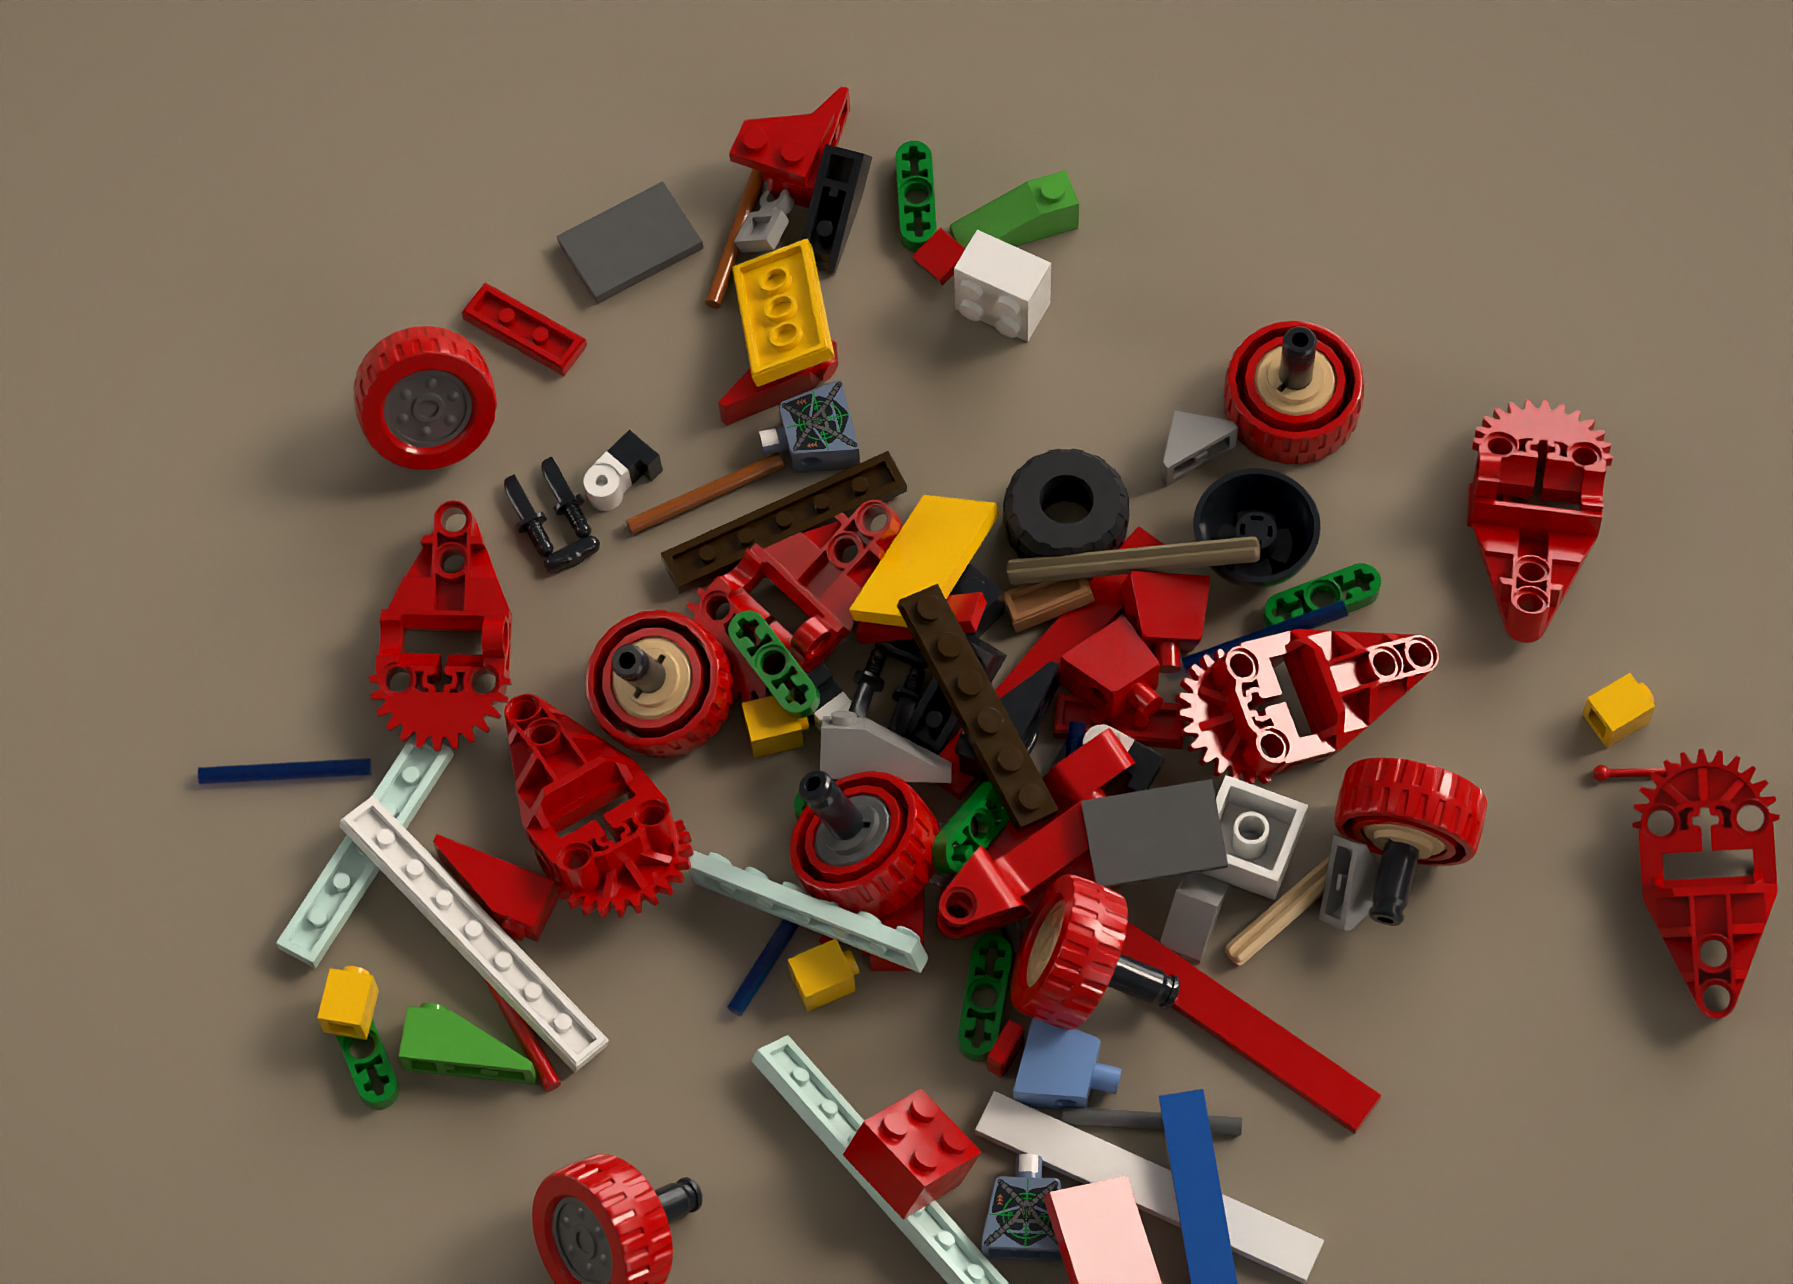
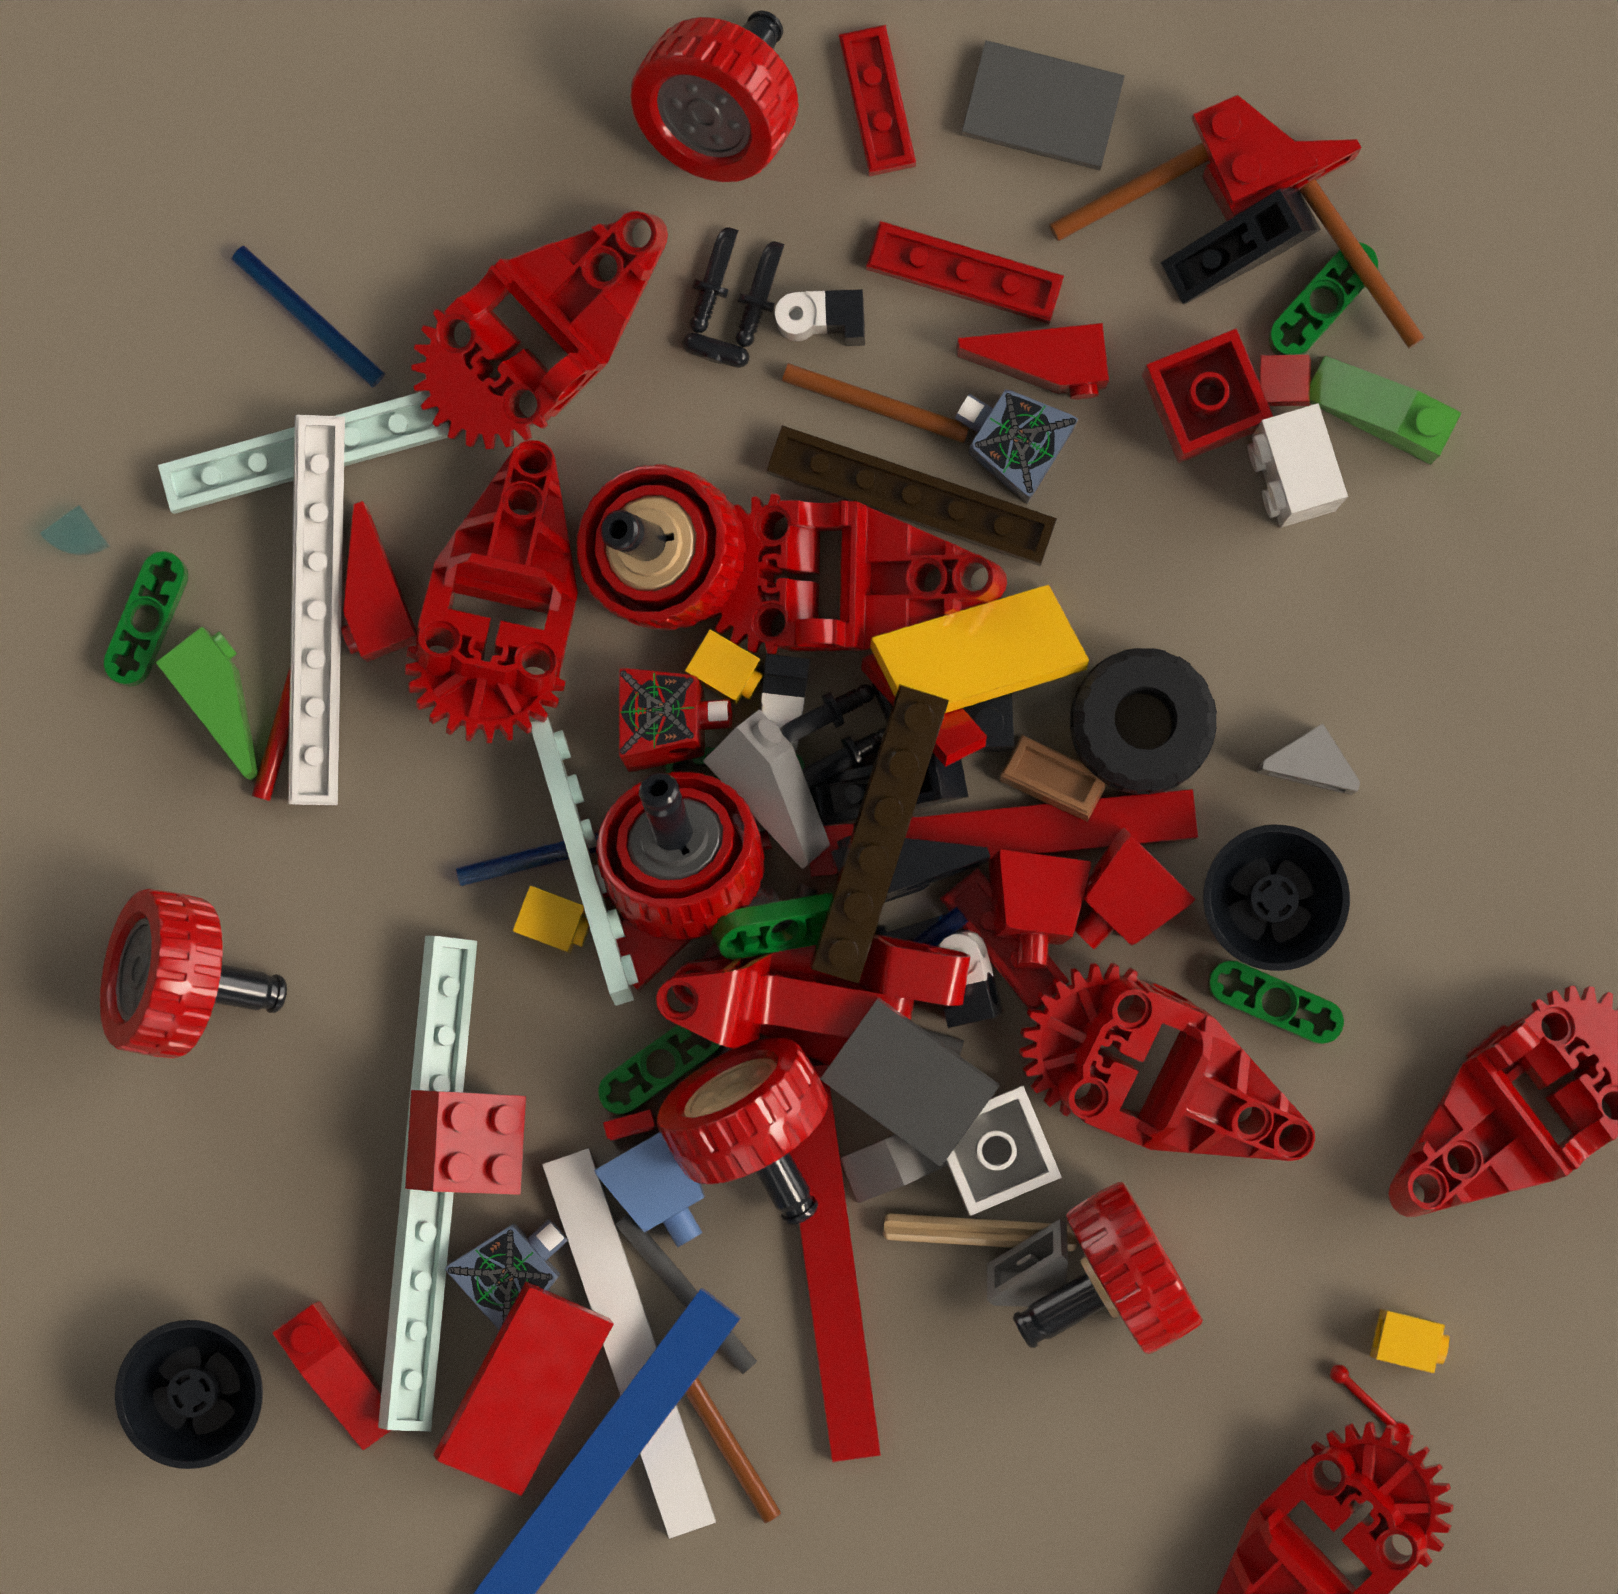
camera: 45 degrees right, 20 degrees up
(261, 1042) = (75, 534): none -> clear light blue tile
(348, 1002) = (160, 577): yellow brick -> none
(676, 376) = (964, 272): none -> red tile
(765, 227) = (1168, 206): light grey plate -> none
(766, 634) = (781, 591): green beam -> none
(766, 782) = (665, 718): none -> torso
(782, 312) = (1092, 308): yellow tile -> none
(904, 300) = (1206, 395): none -> red brick
(917, 151) = (1361, 263): none -> dark orange bar
(1134, 559) = (1146, 828): dark tan axle -> none
(1287, 1189) = (732, 1451): none -> dark orange bar
(1294, 392) = (1442, 802): red wheel -> none
(1305, 621) = (1191, 991): clear blue bar -> none

